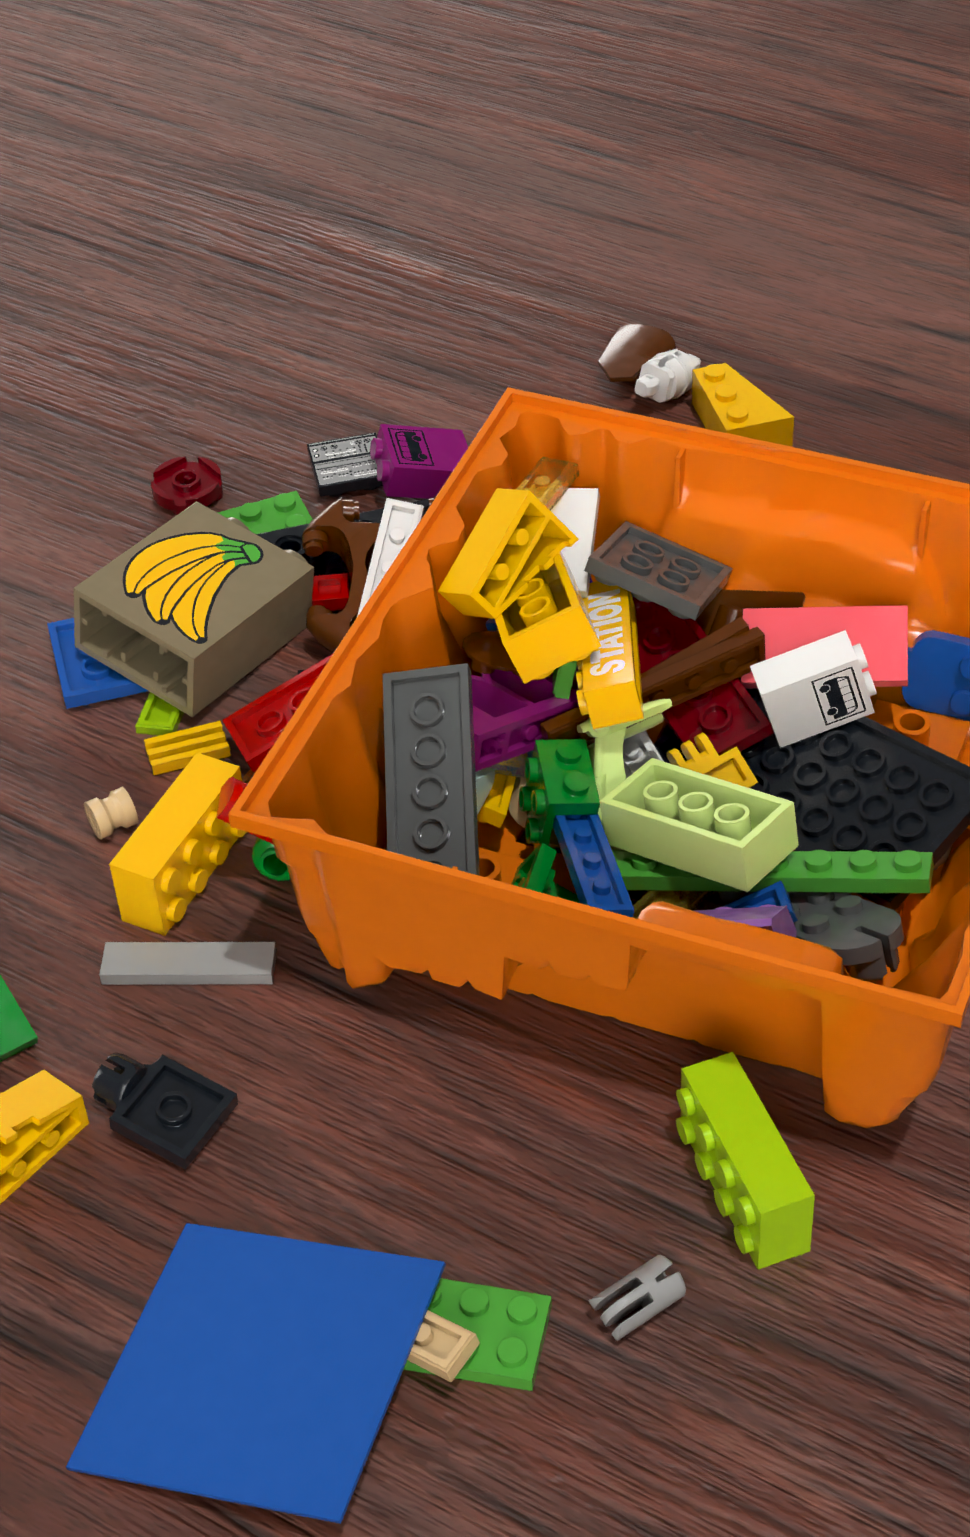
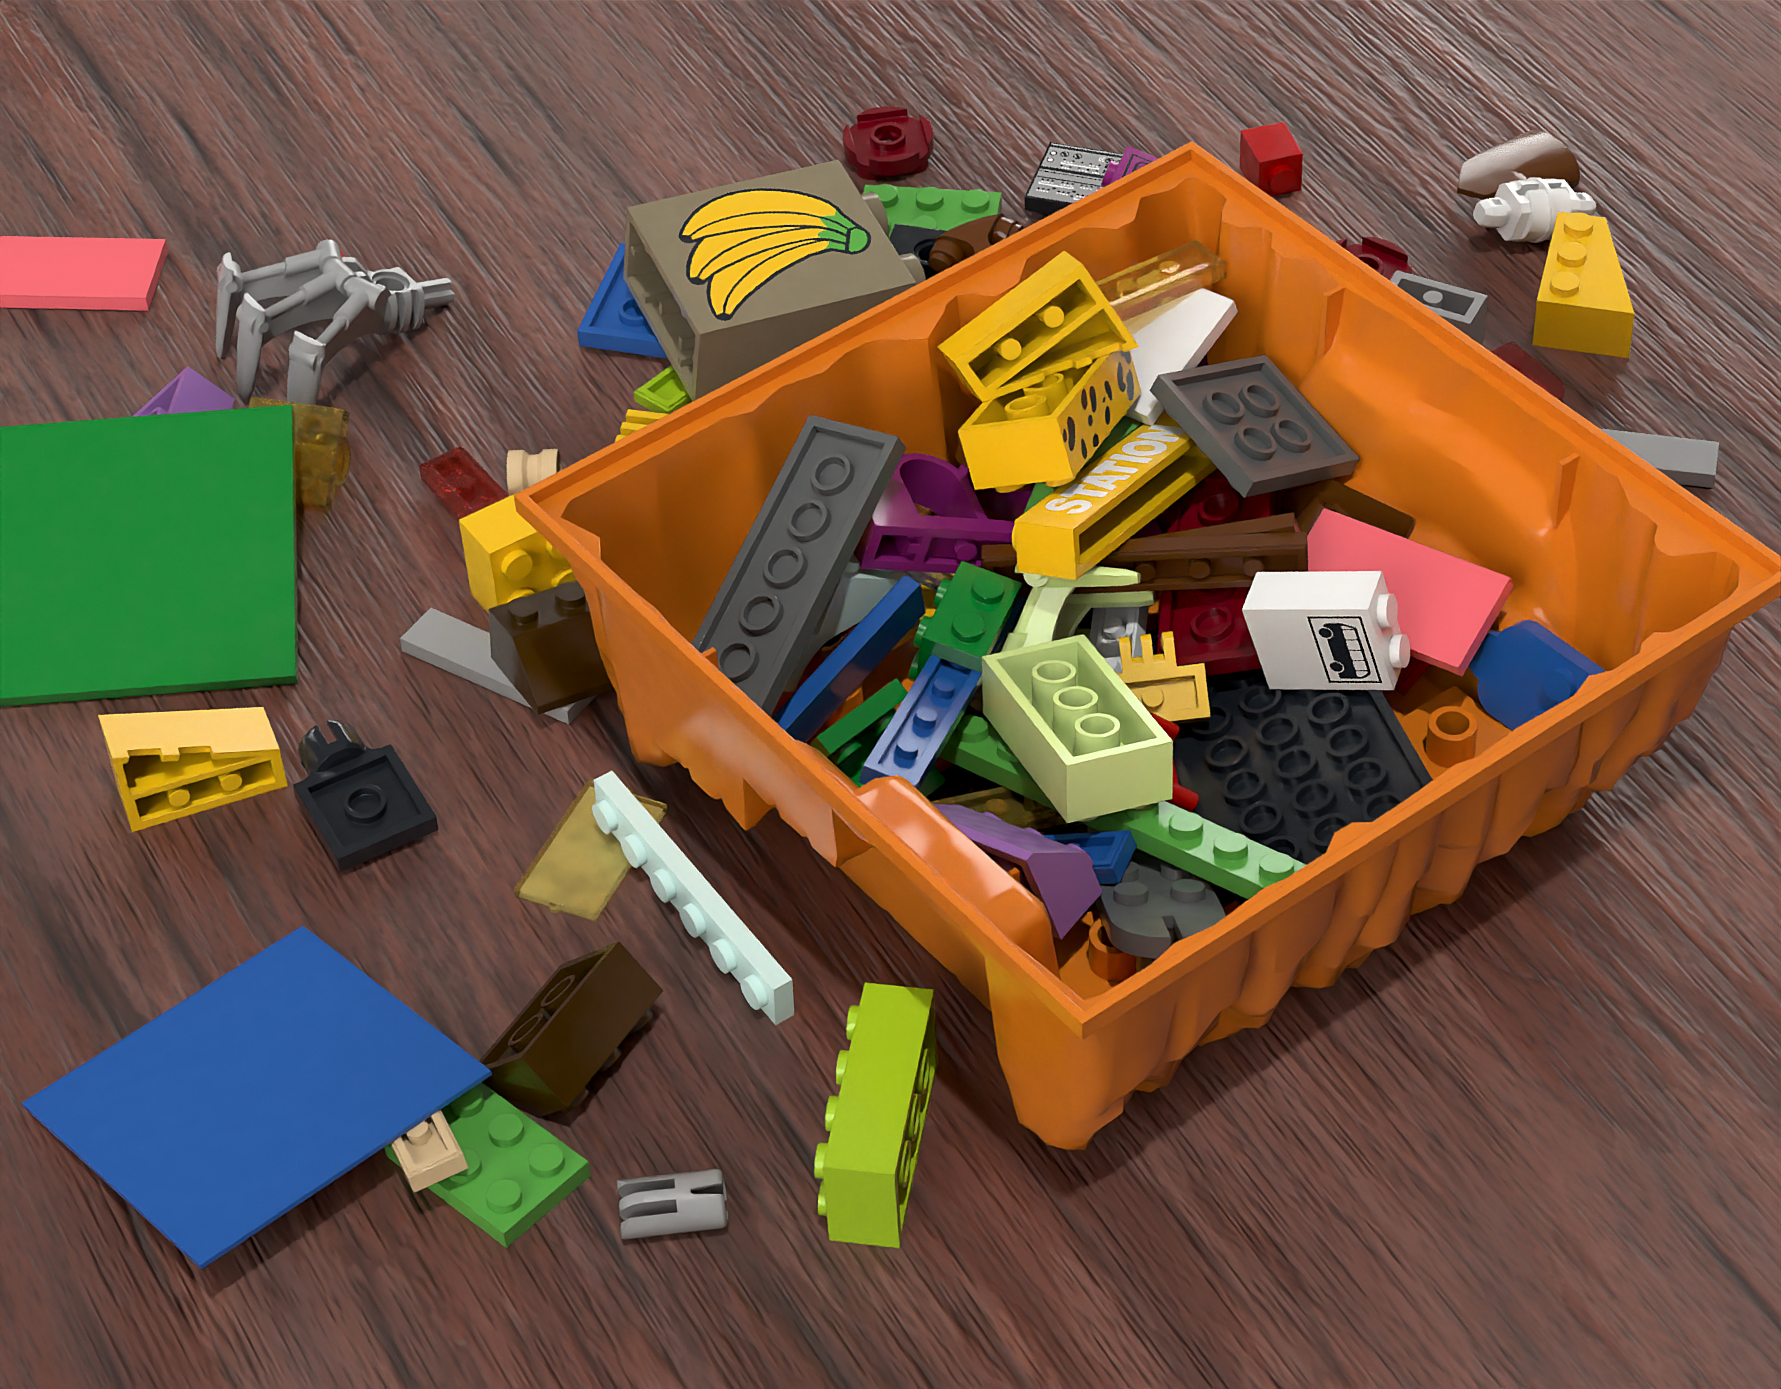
camera: 30 degrees right, 0 degrees up
(64, 844) = (461, 482): none -> clear red plate
(242, 919) = (548, 647): none -> dark brown slope
(364, 1068) = (579, 861): none -> clear yellow piece
(462, 1204) = (571, 1031): none -> dark brown slope
(465, 403) = (1271, 159): none -> red brick
(478, 1067) = (699, 905): none -> light aqua plate
(497, 822) = (852, 660): none -> blue tile

